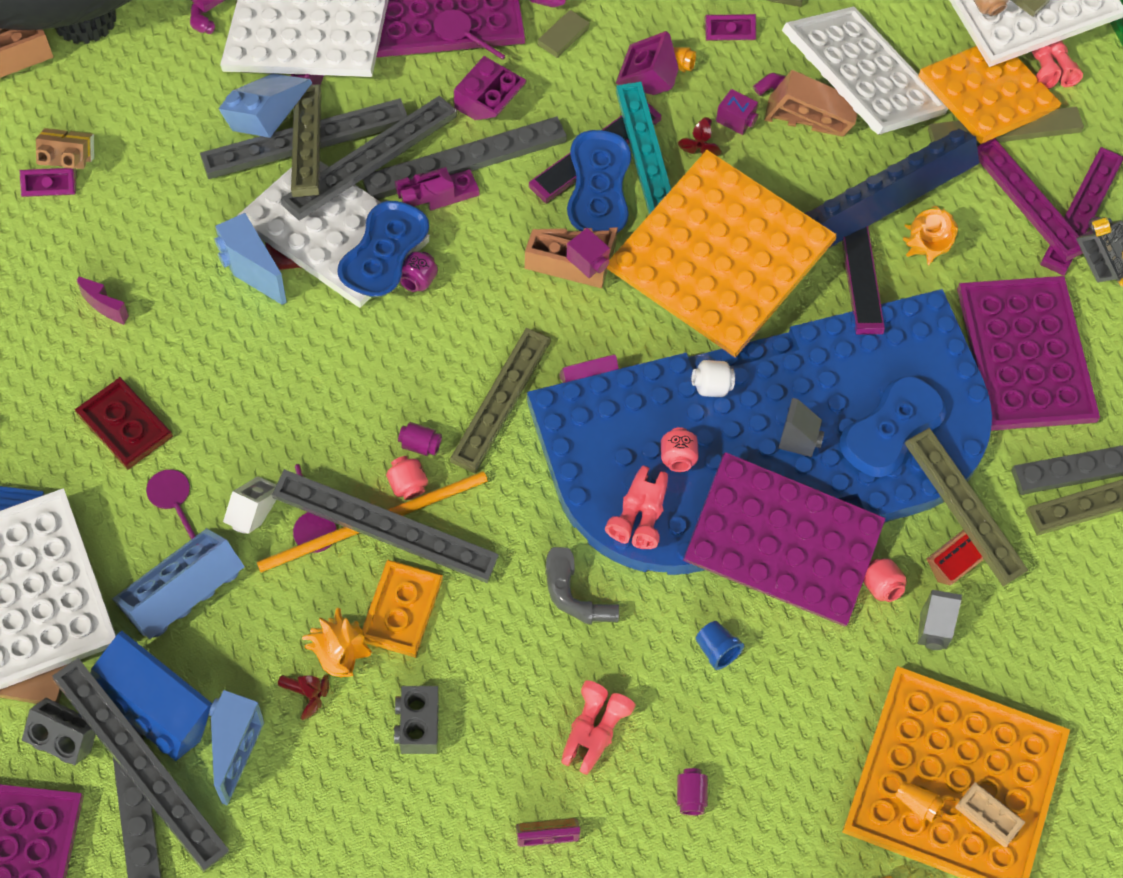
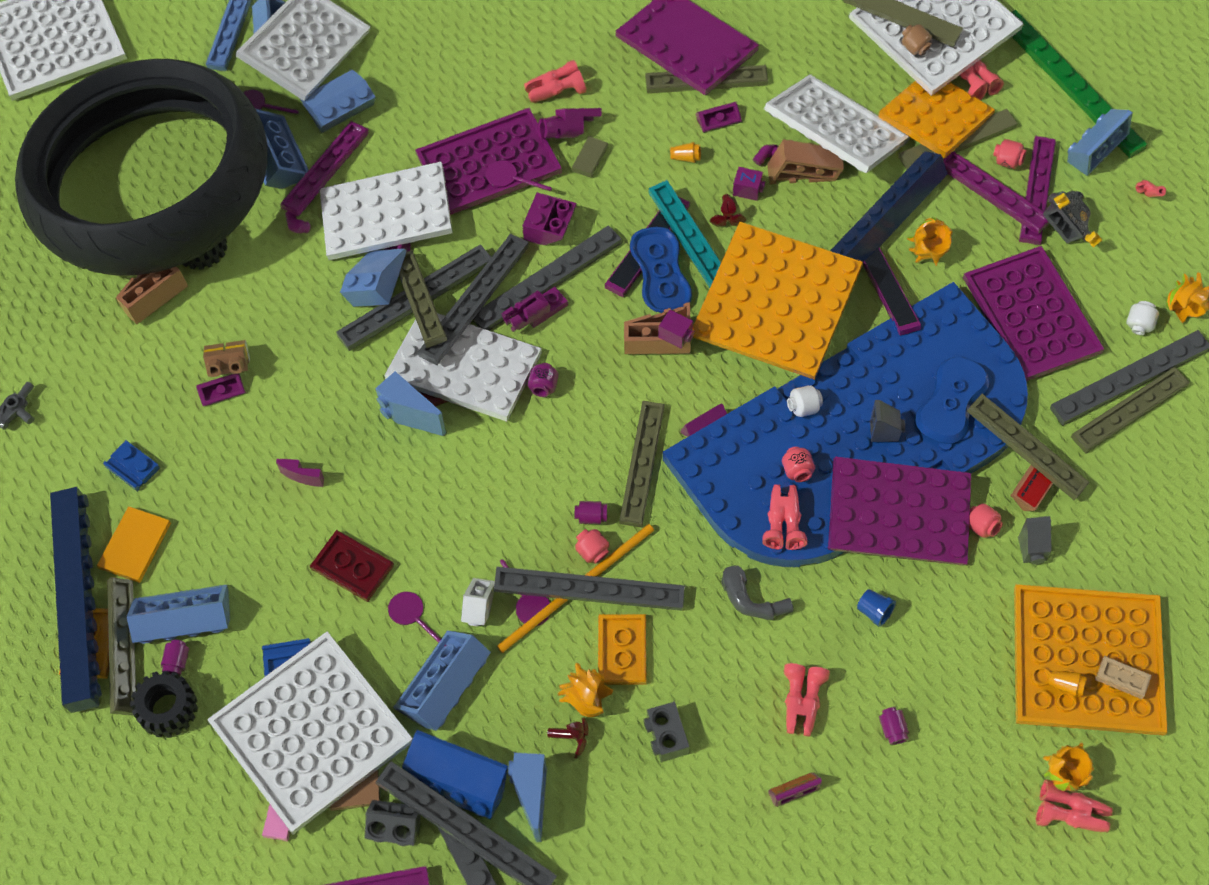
camera: 10 degrees left, 0 degrees up
(377, 261) = (510, 381): blue plate -> none
(651, 63) = (667, 162): magenta slope -> none
(1062, 159) = (1009, 154): none -> coral head

